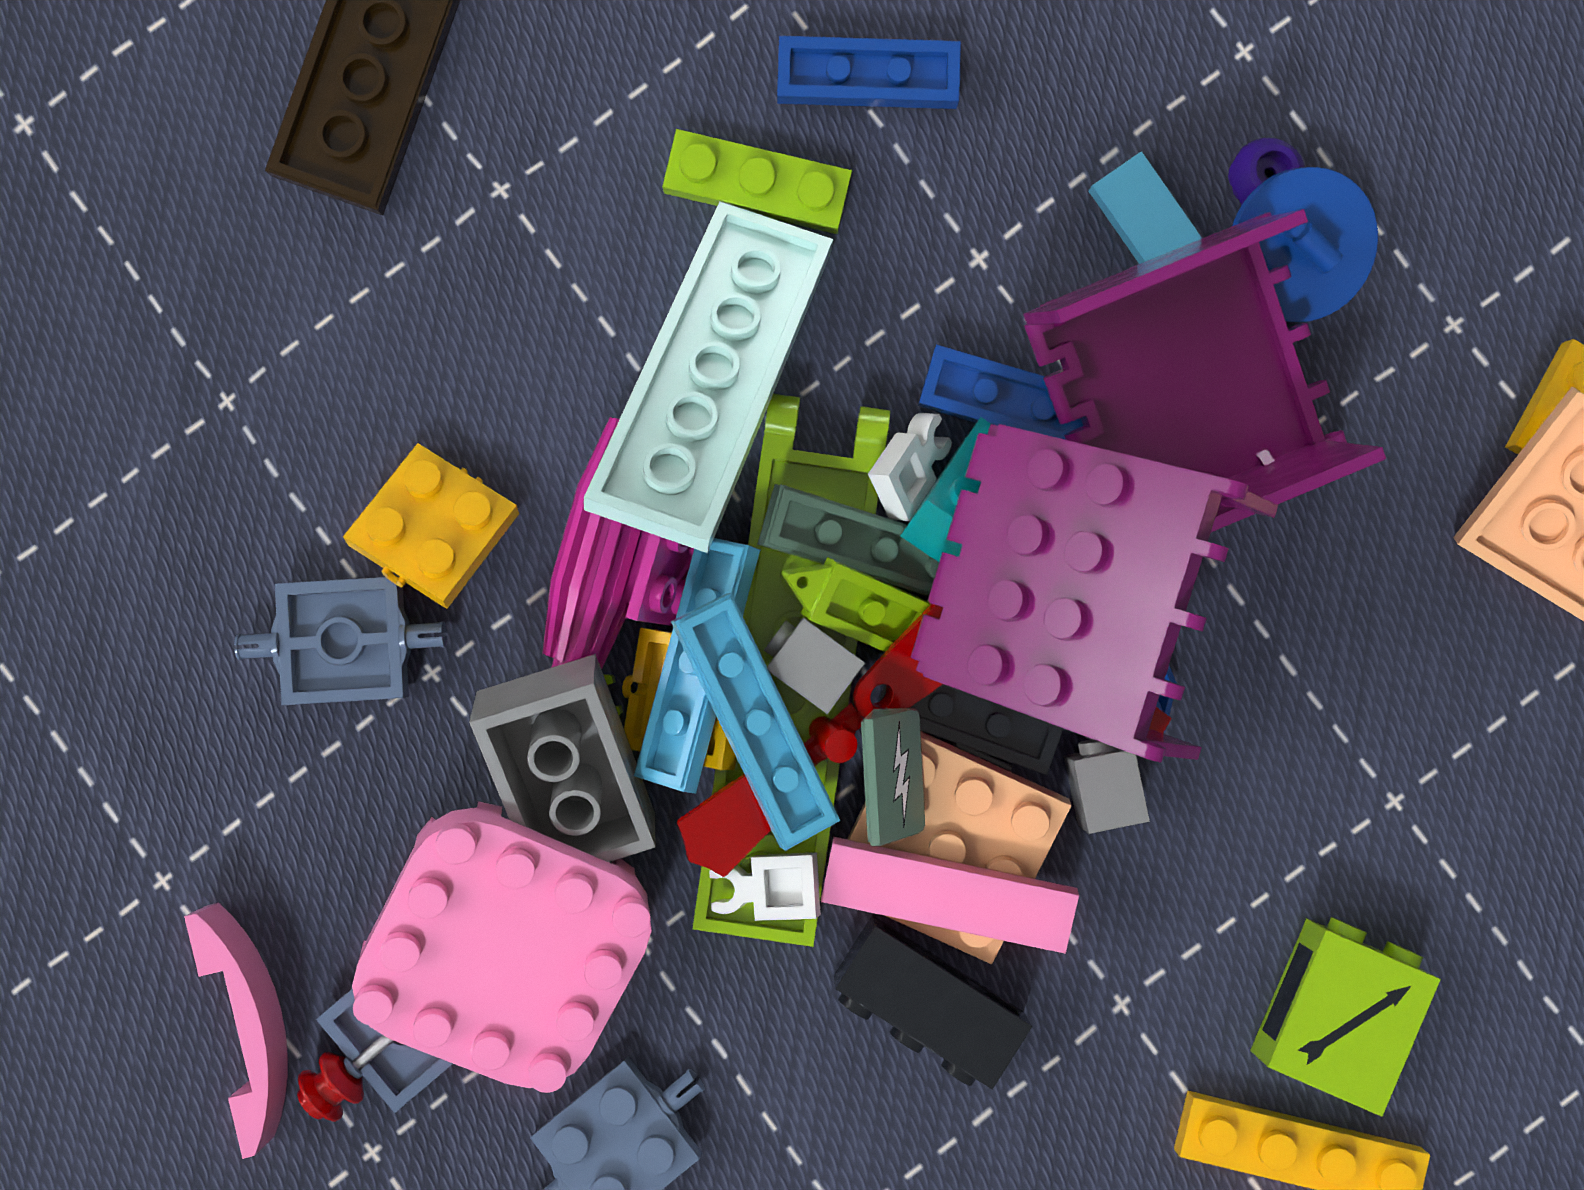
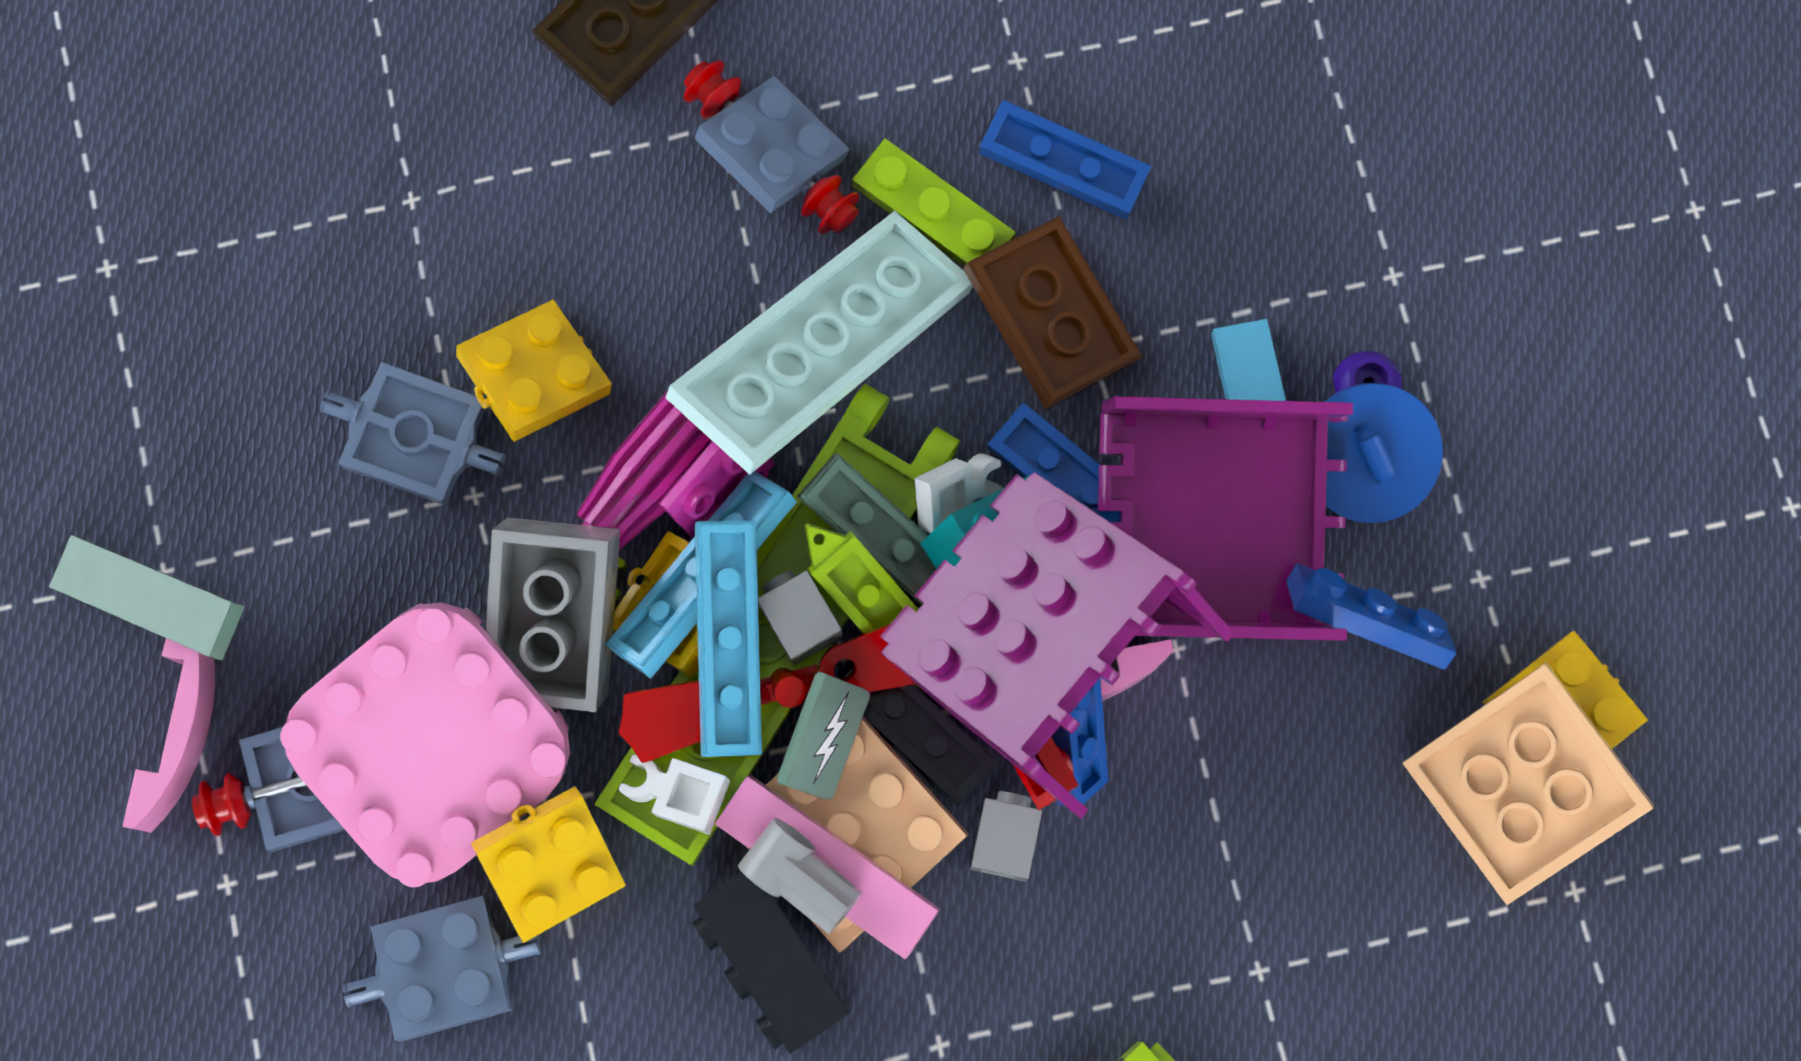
camera: 20 degrees right, 10 degrees down
(156, 927) = (147, 597): none -> tile
(564, 186) = (771, 145): none -> sand blue plate
(675, 1010) = (548, 863): none -> yellow plate
(915, 919) = (786, 866): none -> light grey piece
(924, 238) = (1052, 312): none -> reddish brown tile
(1374, 413) = (1371, 615): none -> blue plate

